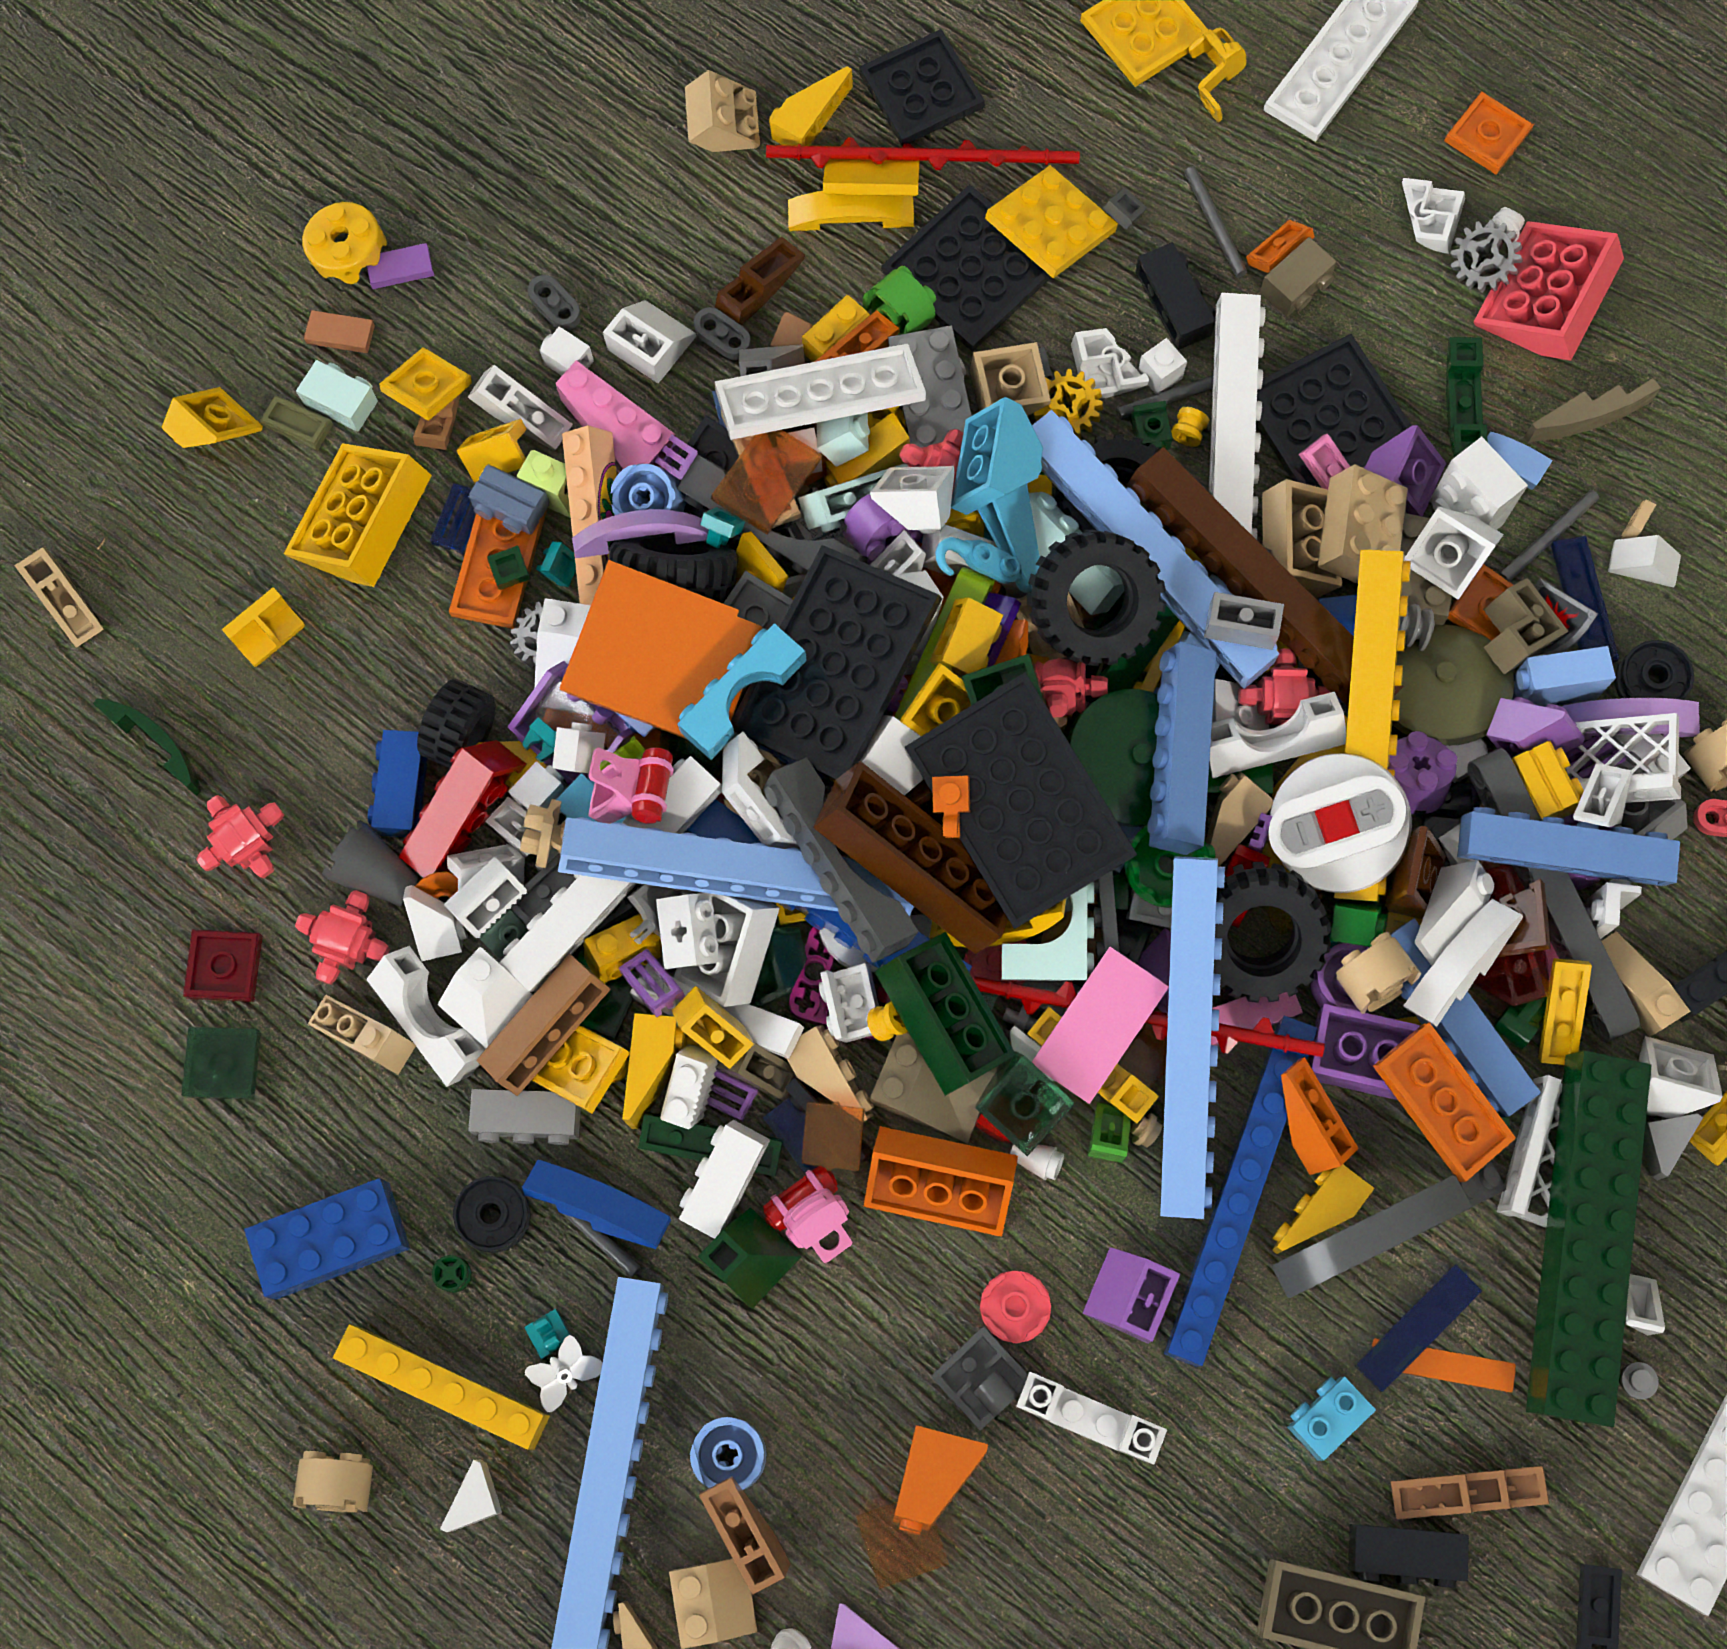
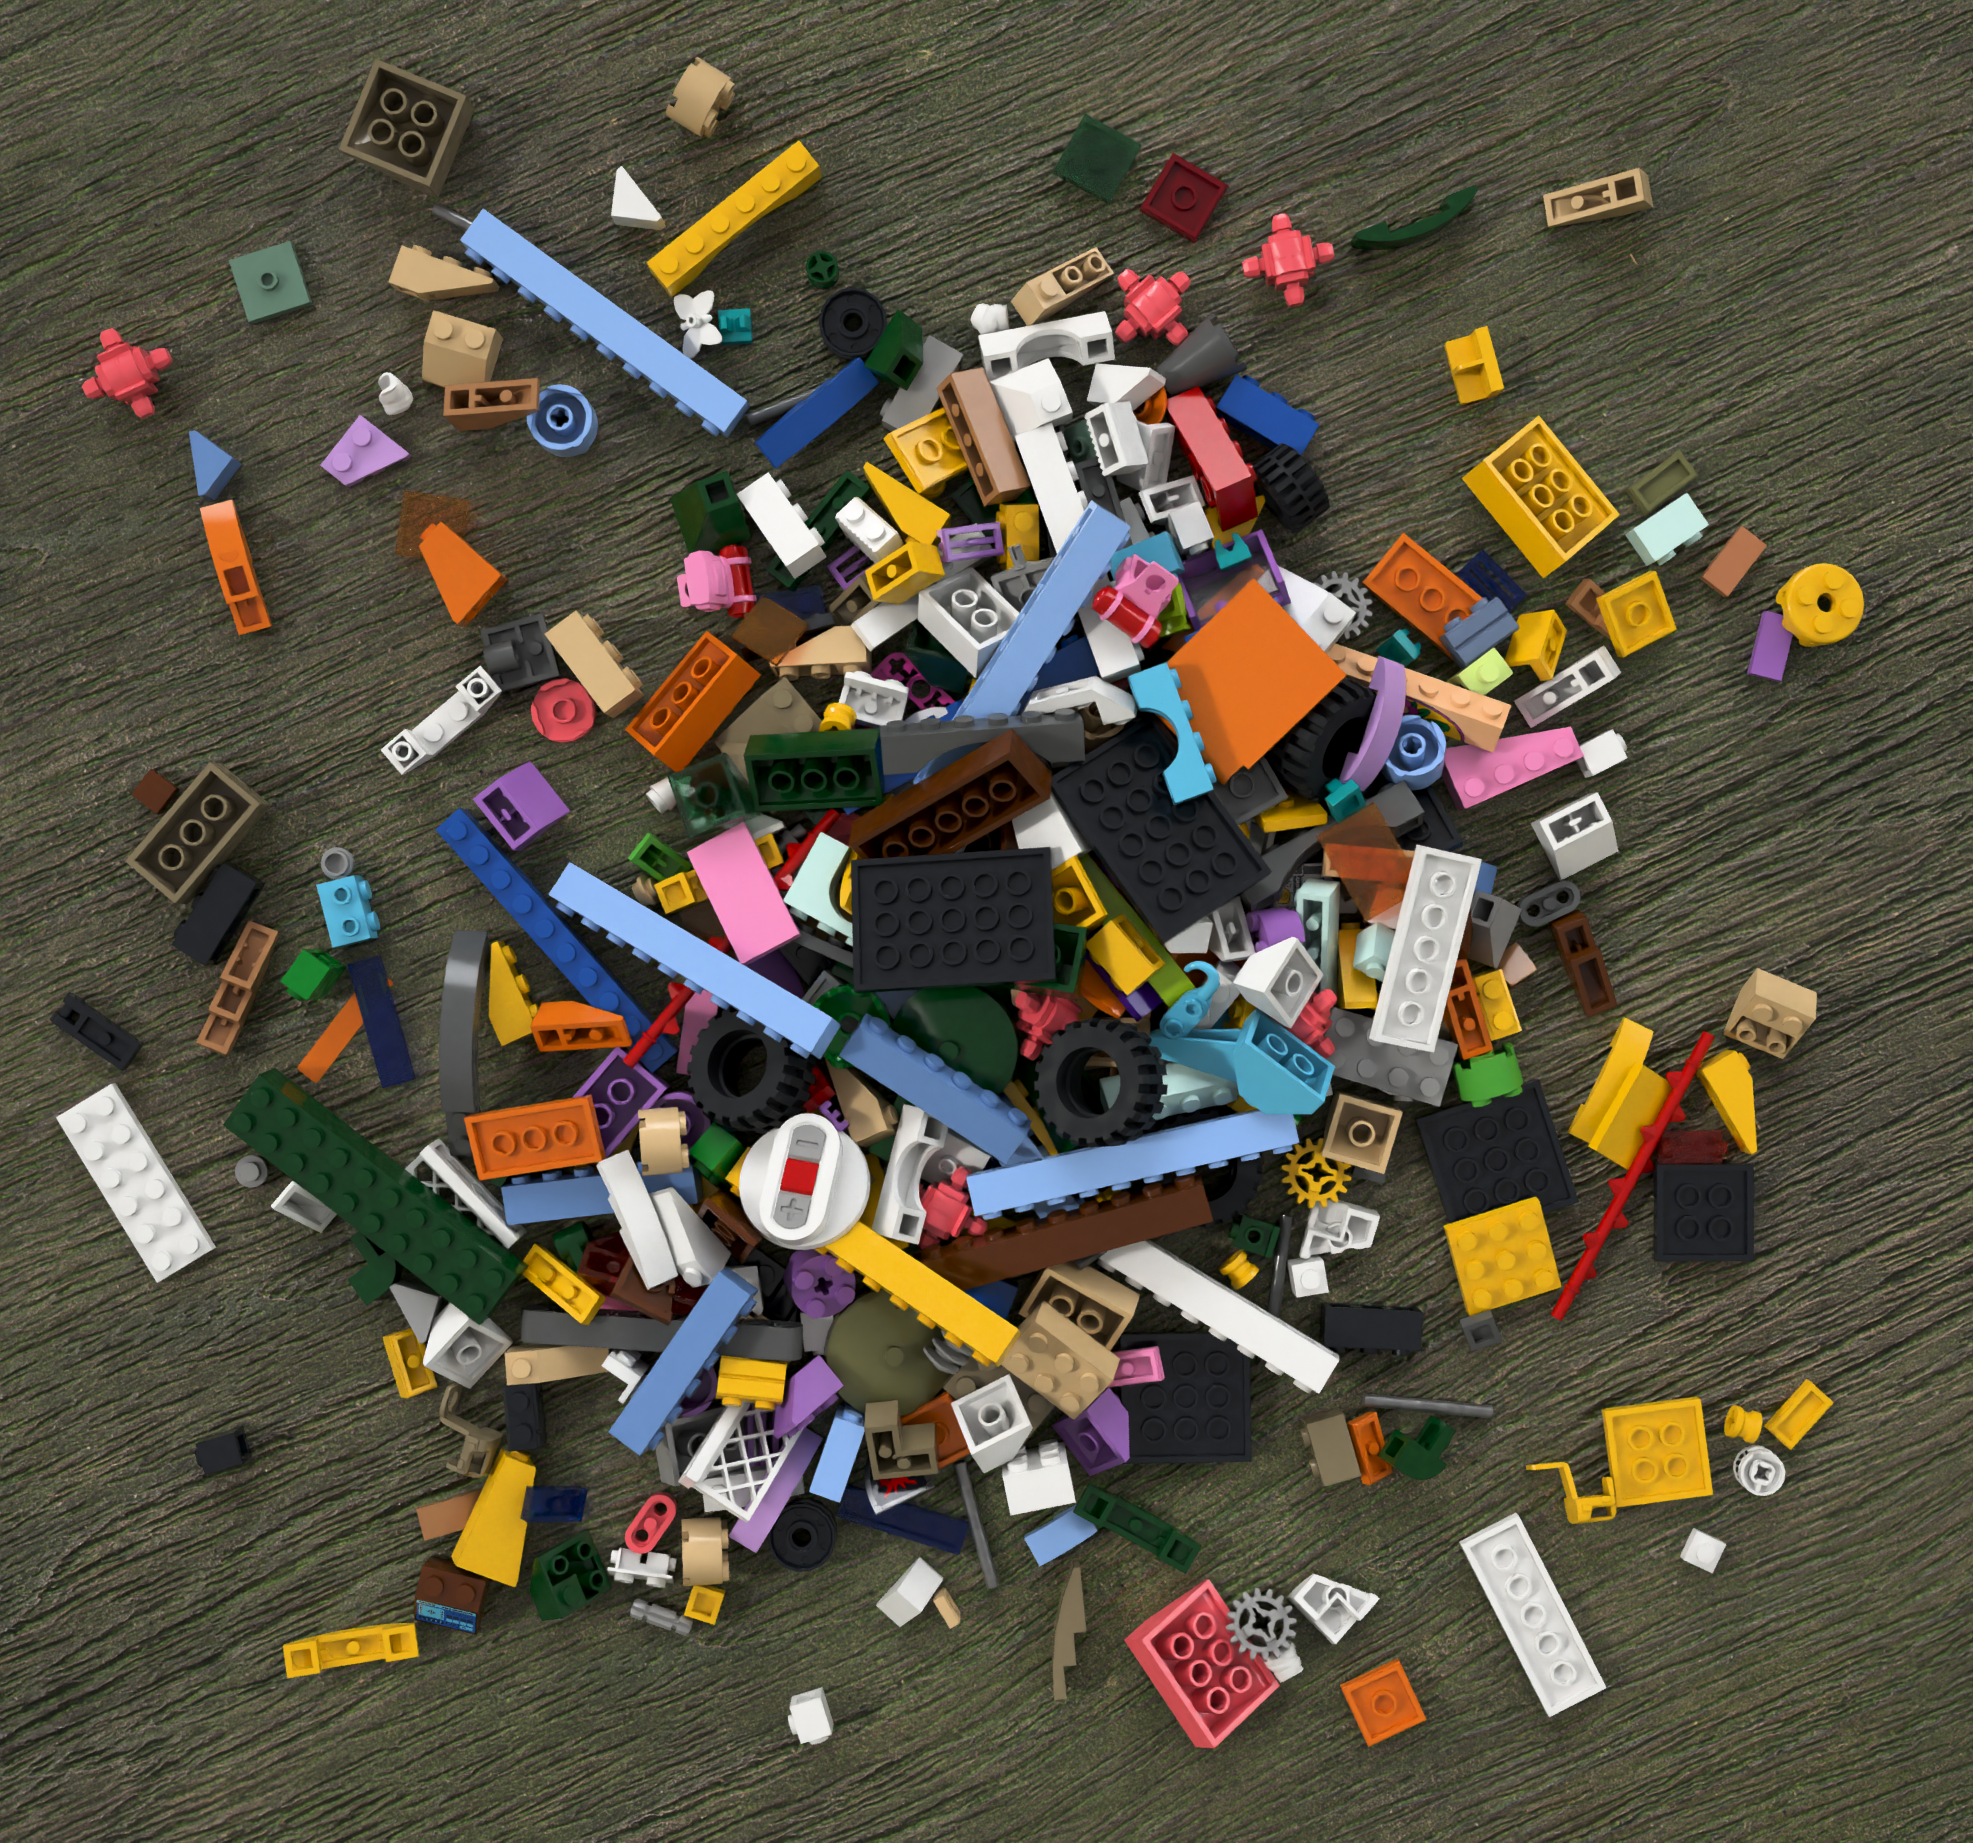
camera: 115 degrees right, 15 degrees up
(207, 418) = (1701, 404): yellow slope -> none
(326, 1239) = (901, 180): blue brick -> none
(424, 1085) = (990, 318): none -> white arm
(500, 1150) = (898, 352): none -> dark green slope
(508, 567) = (1414, 602): dark green plate -> none
(551, 833) = (1146, 512): tan hips -> none
(556, 304) = (1657, 768): dark grey plate -> none
(575, 747) = (1204, 577): white brick -> none
(671, 453) = (1432, 790): medium lavender tile -> none
(687, 930) = (994, 590): white brick -> none
(870, 121) = (1691, 1147): none -> clear red hinge
(951, 797) = (982, 862): orange plate -> none
(953, 1290) = (596, 663): none -> tan brick
(1244, 620) = (1012, 1197): light grey brick -> none
(1261, 201) = (1420, 1456): none -> dark green brick
(1289, 1456) = (337, 863): none -> light grey plate
(1414, 1415) = (312, 975): none -> green brick
(1604, 796) = (709, 1415): white slope -> none
(1664, 1198) = (379, 1273): none -> dark green brick

